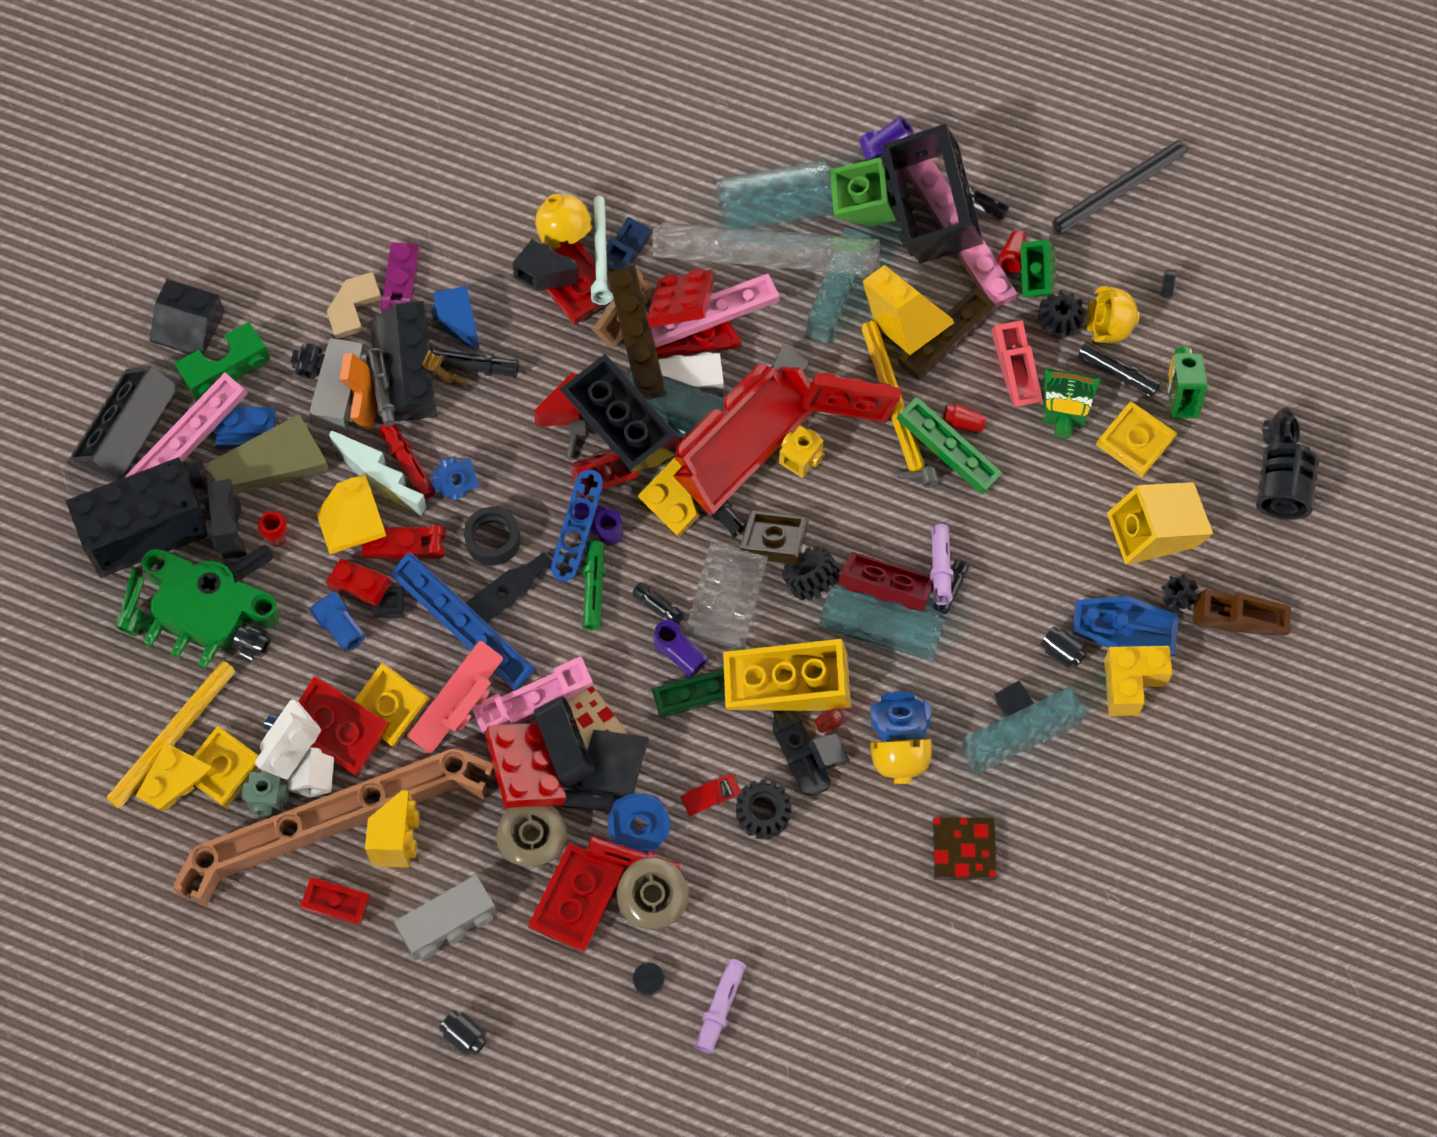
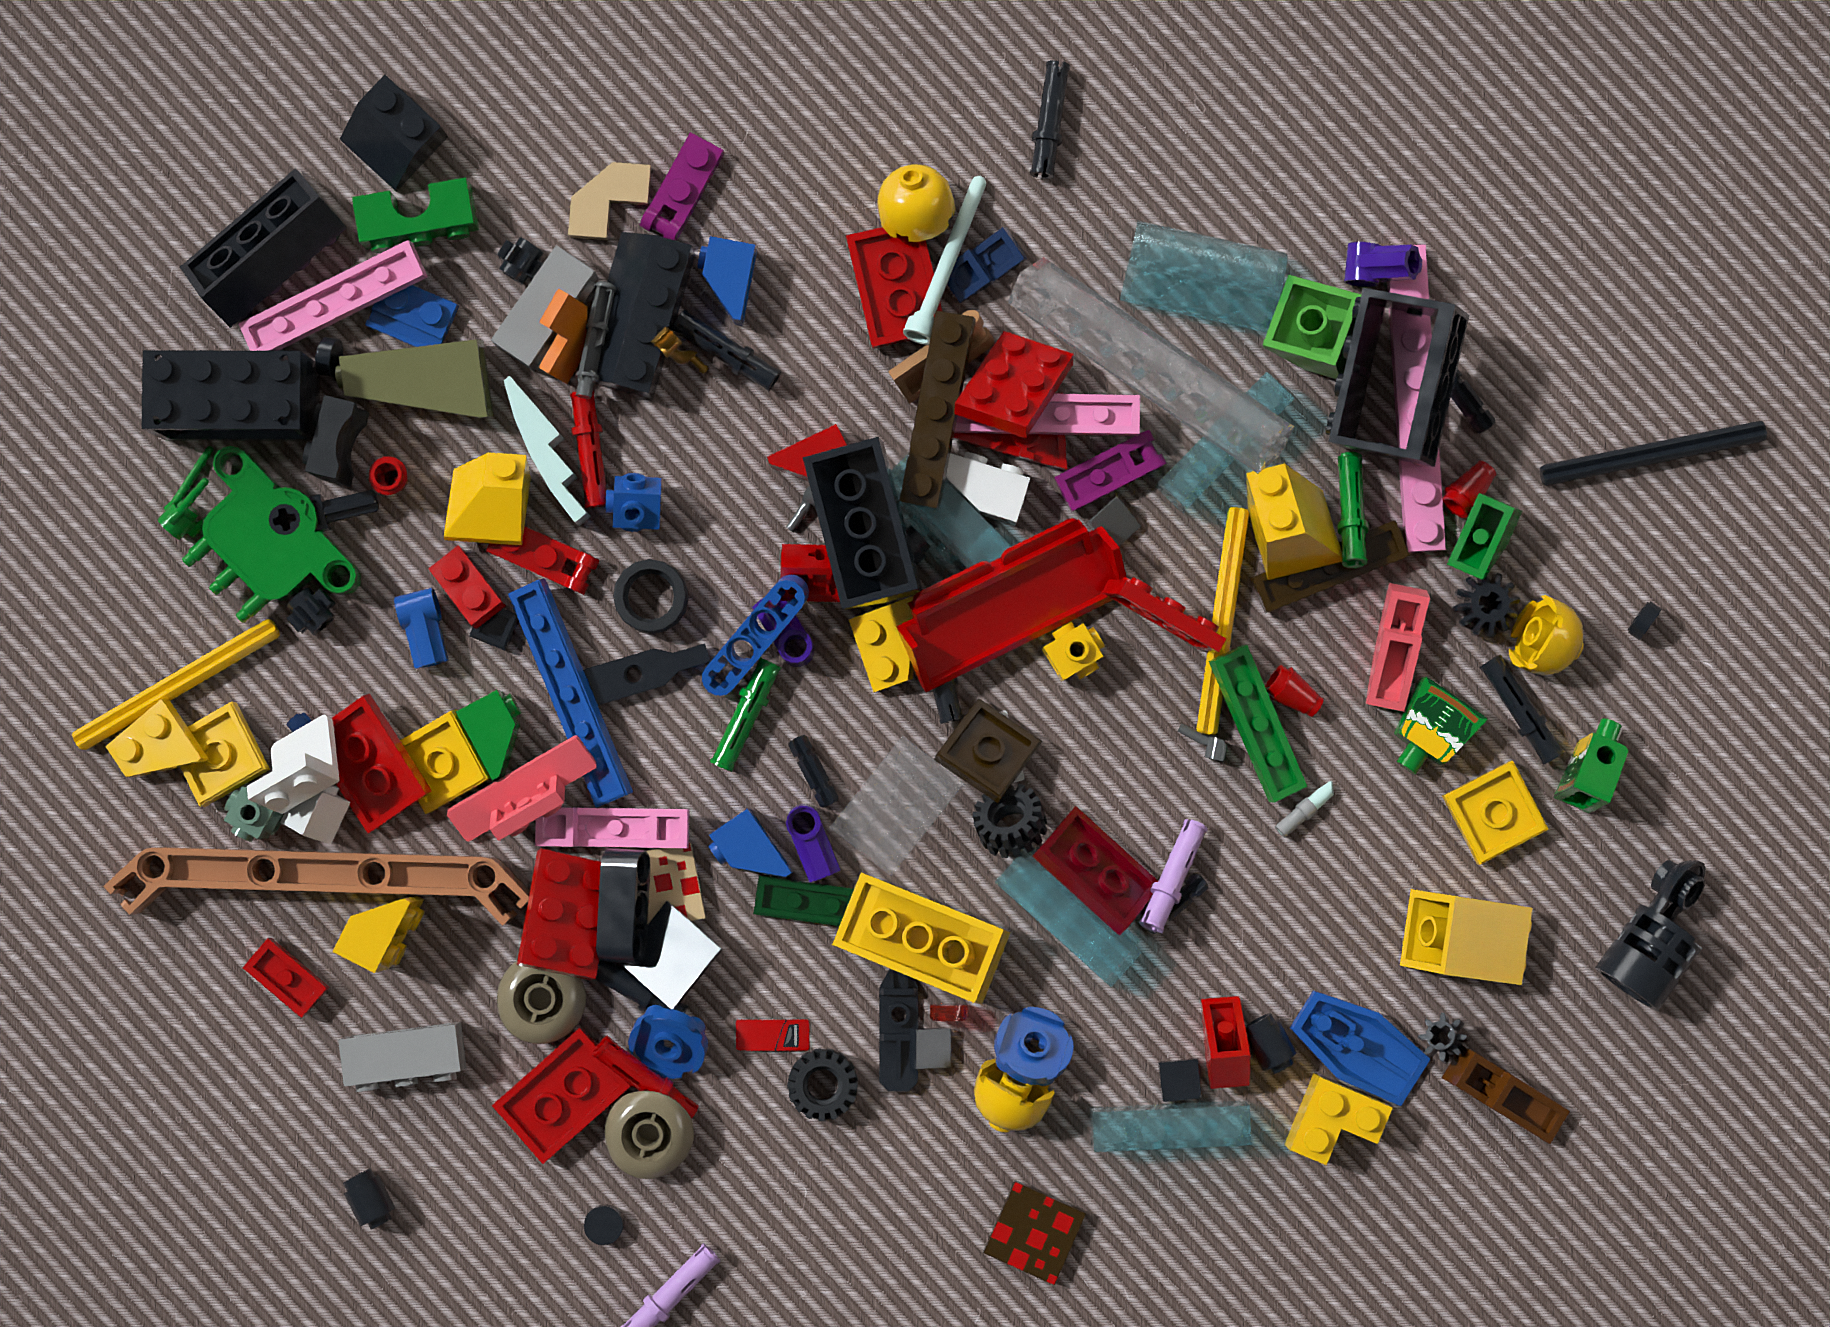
camera: 25 degrees right, 20 degrees up
(416, 664) = (492, 729): none -> green slope
(544, 268) = (860, 262): black slope -> none
(630, 152) = (1047, 133): none -> black pin
(636, 670) = (748, 846): none -> blue slope
(770, 334) = (1108, 471): none -> magenta plate
(947, 296) = (1353, 522): none -> green pin
(1009, 491) = (1305, 809): none -> light grey piece
(1034, 660) = (1225, 1042): none -> red slope

